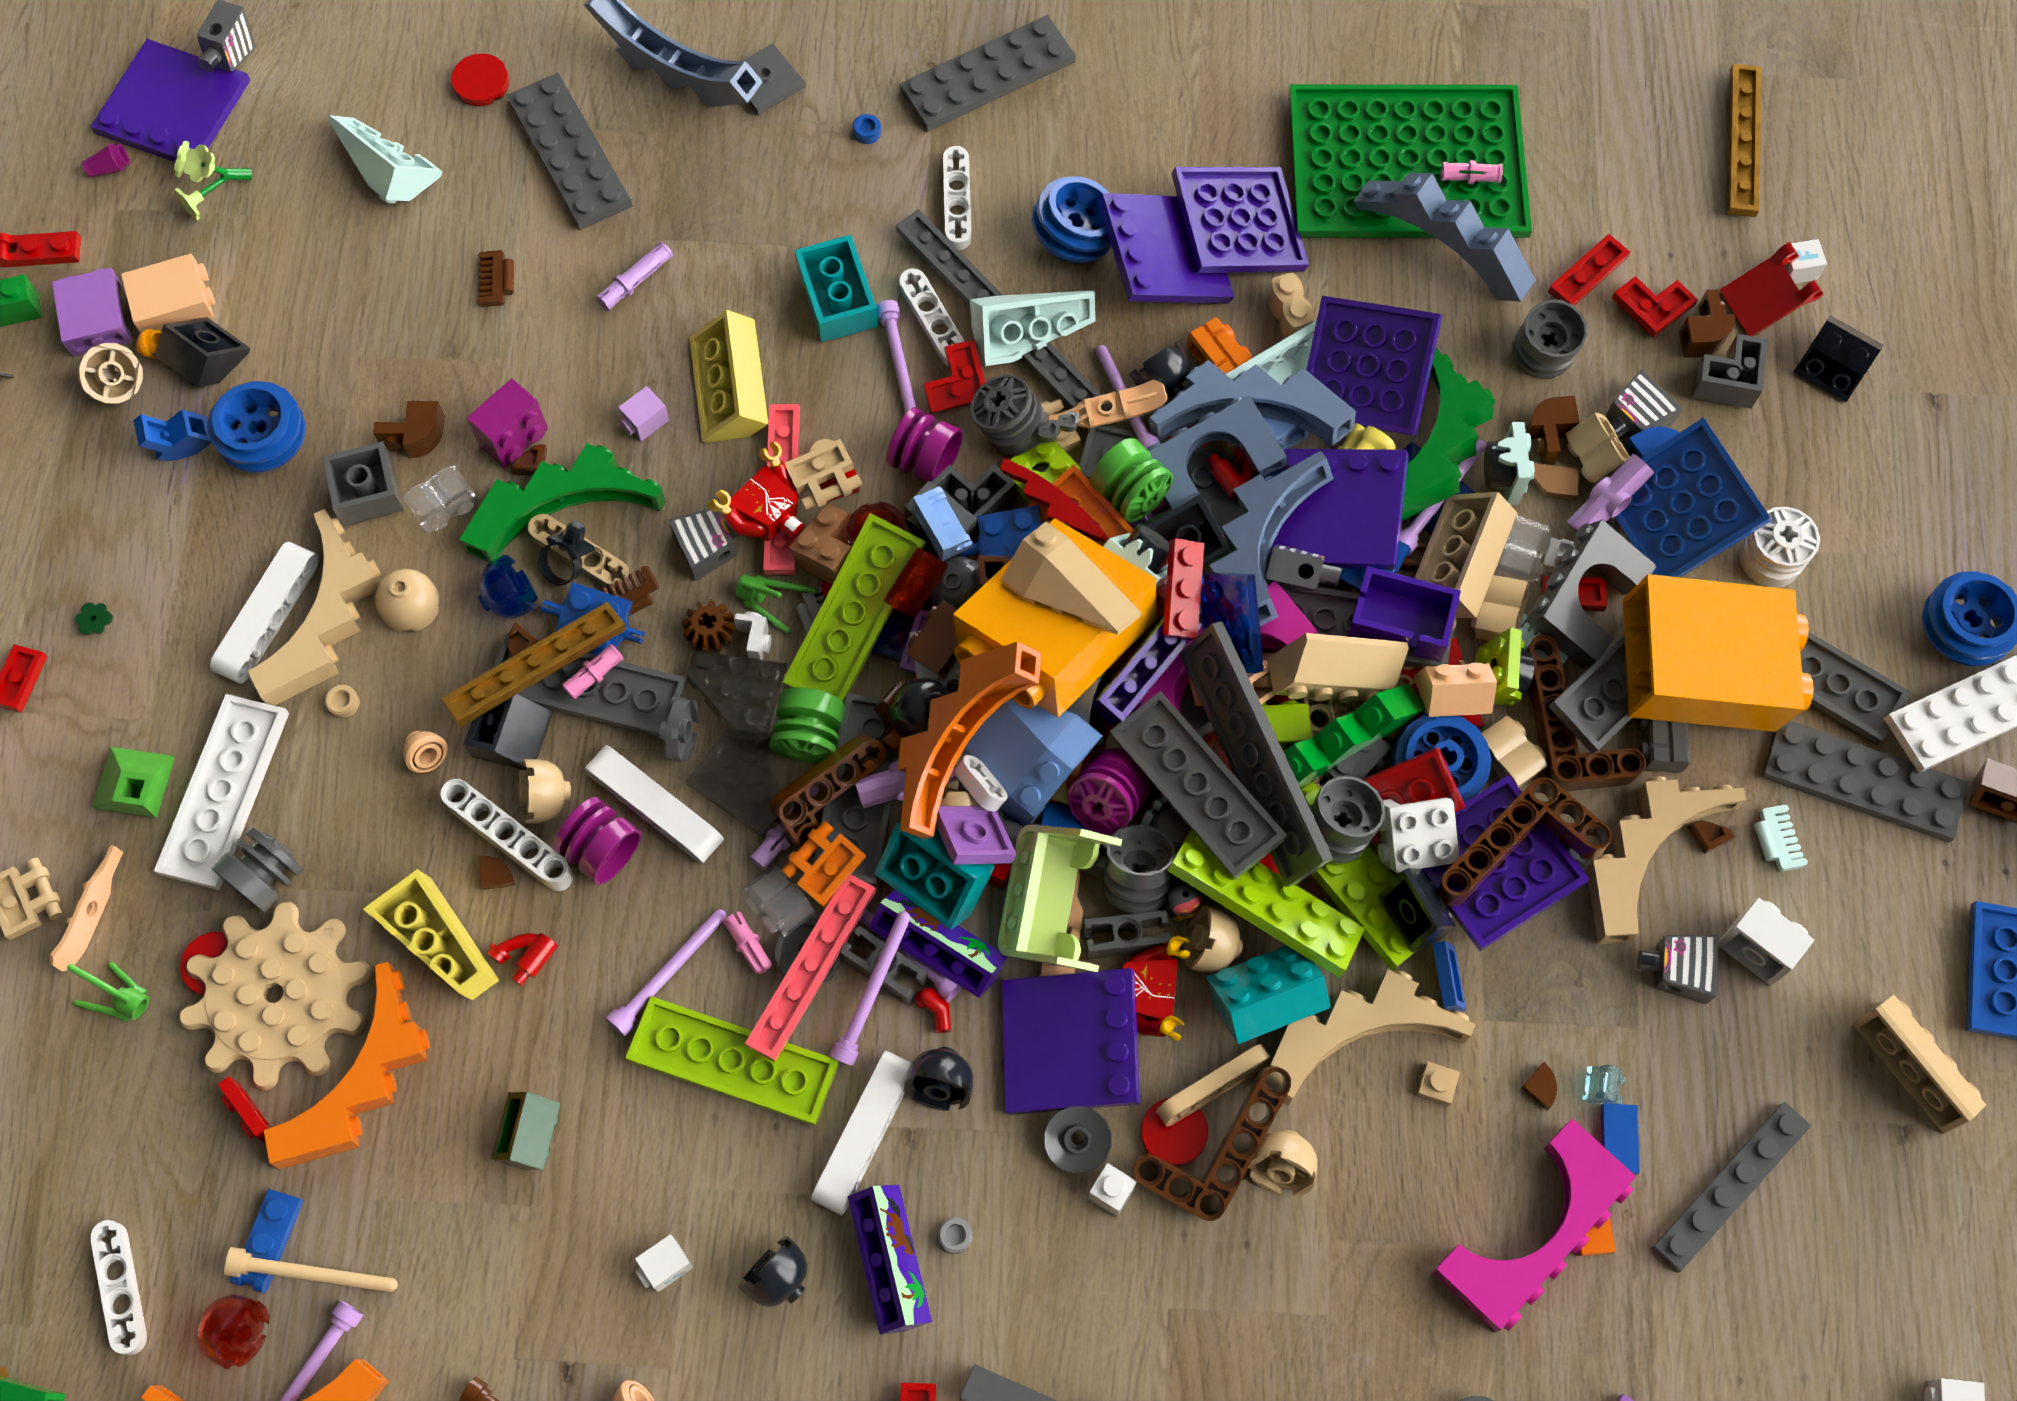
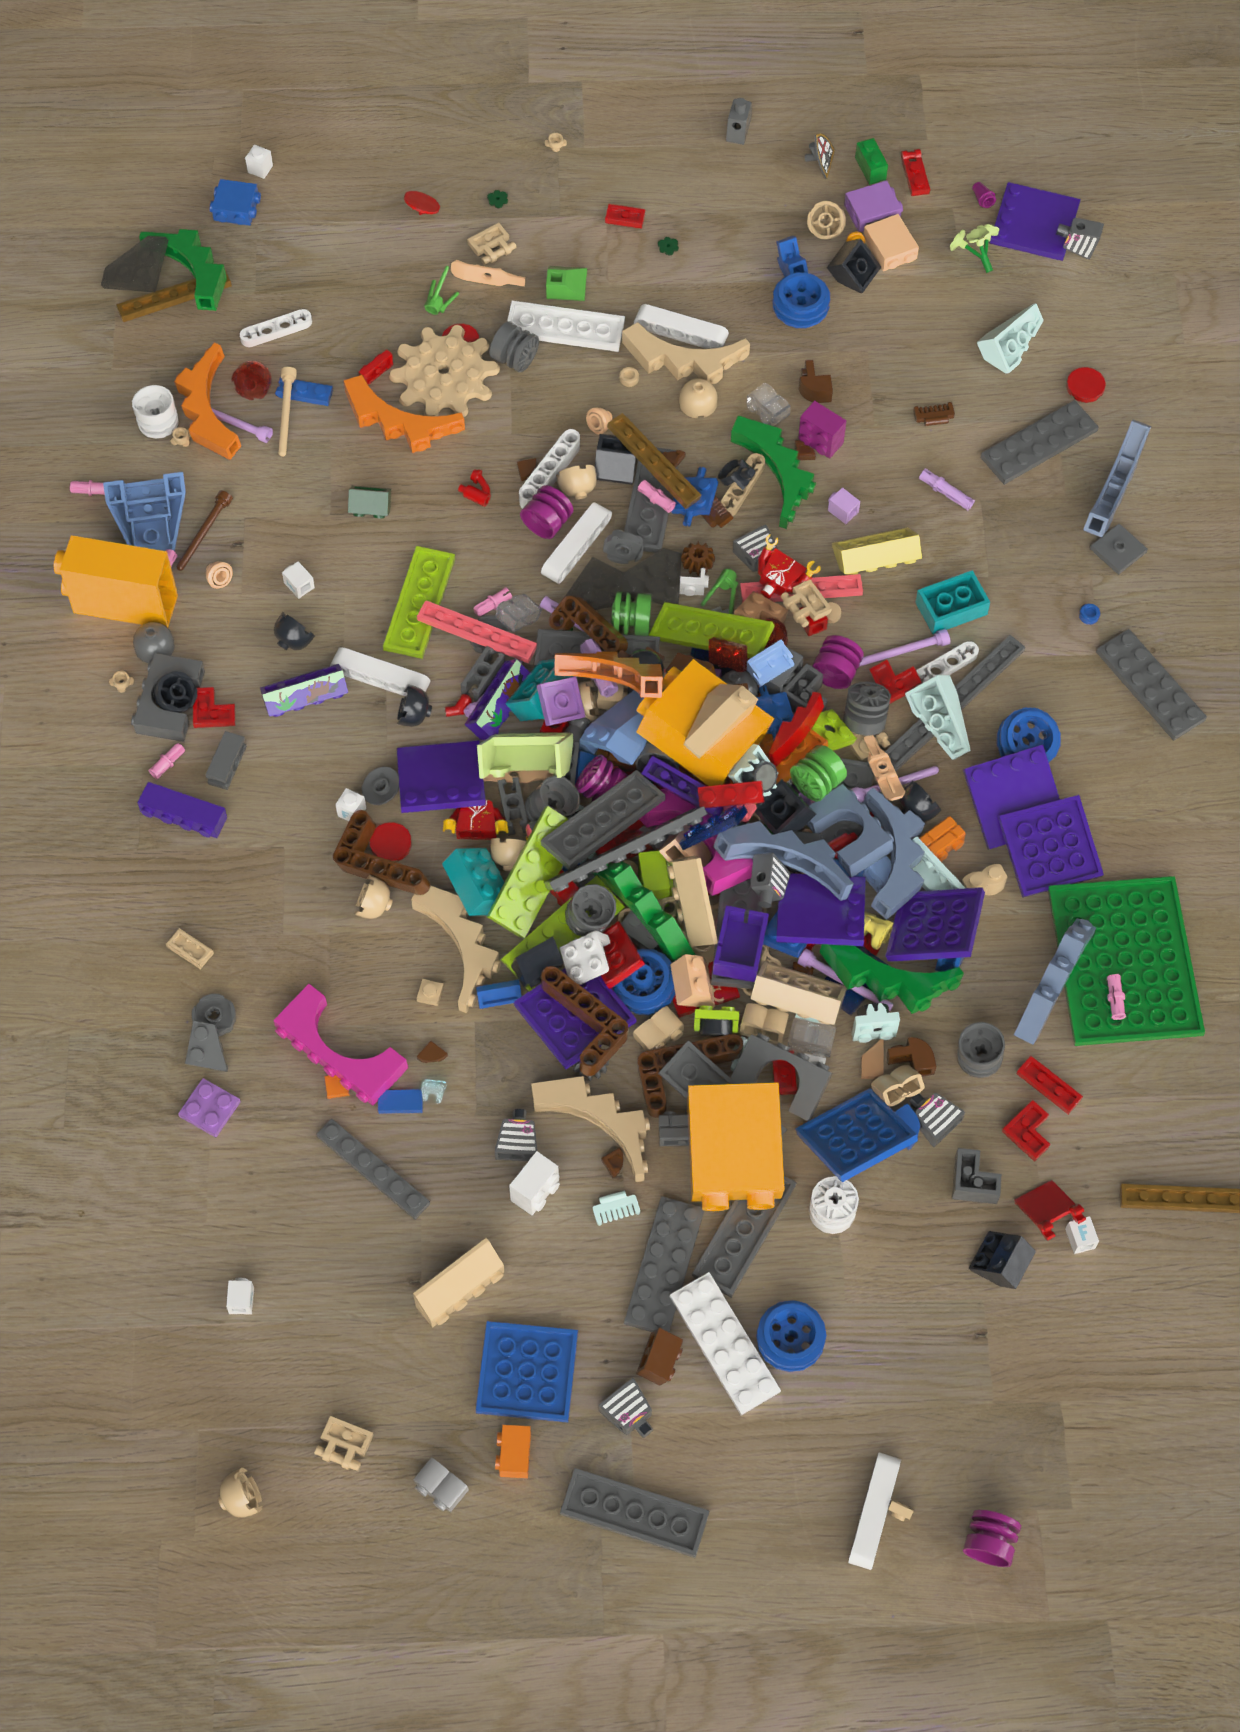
camera: 85 degrees right, 5 degrees down
(362, 483) = (771, 361): dark grey brick -> none
(431, 930) = (484, 439): light yellow wedge -> none
(505, 590) = (709, 447): clear blue cylinder -> none
(624, 1017) = (440, 543): lavender piece -> none
(830, 869) = (537, 632): orange plate -> none
(846, 1048) = (429, 659): lavender piece -> none
(955, 1235) = (321, 729): light grey tile -> none
(957, 197) = (1043, 676): white beam -> none
(980, 783) = (598, 707): white beam -> none
(1050, 431) = (857, 732): dark grey piece -> none
(1213, 1085) = (417, 855): tan beam -> none
(1612, 493) = (858, 1089): lavender piece -> none
(1708, 331) = (1006, 1162): reddish brown brick -> none

